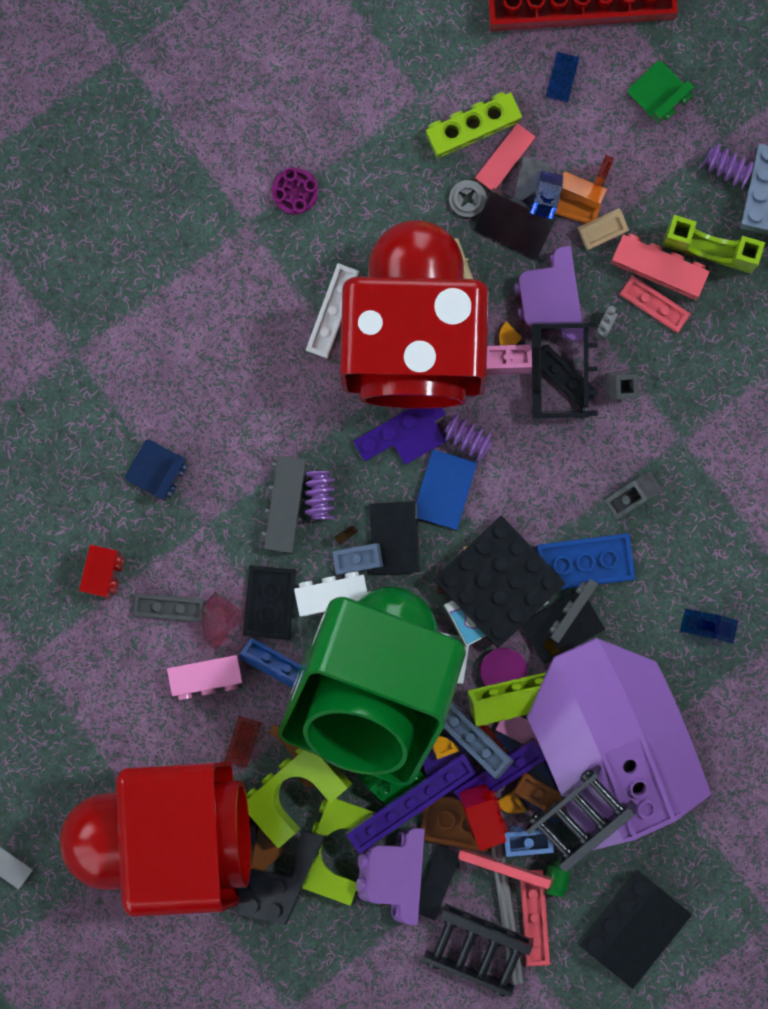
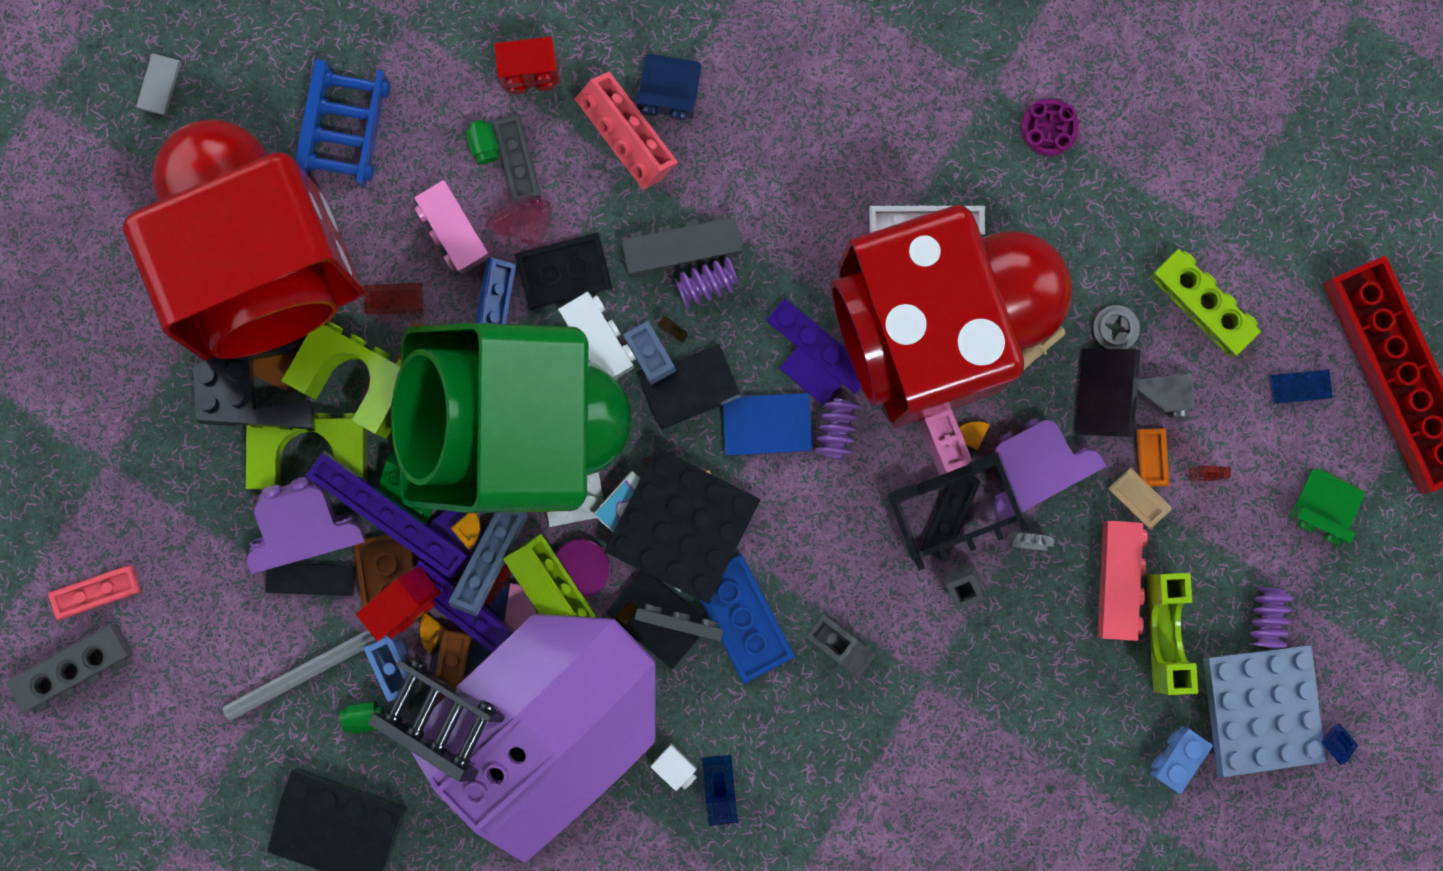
camera: 70 degrees right, 0 degrees up
(72, 744) = (319, 105): none -> blue fence
(146, 629) = (482, 142): none -> green brick
(179, 515) = (626, 130): none -> coral brick
(496, 936) = (273, 654): black fence -> none
(505, 157) = (1181, 354): coral tile -> none
(505, 868) = (350, 653): coral tile -> none
(535, 922) = (309, 707): coral tile -> none
(547, 194) = (1156, 415): clear blue slope -> none
(582, 190) = (1176, 456): orange tile -> none
(654, 304) = (1074, 591): coral tile -> none
(680, 654) = (674, 768): none -> white brick

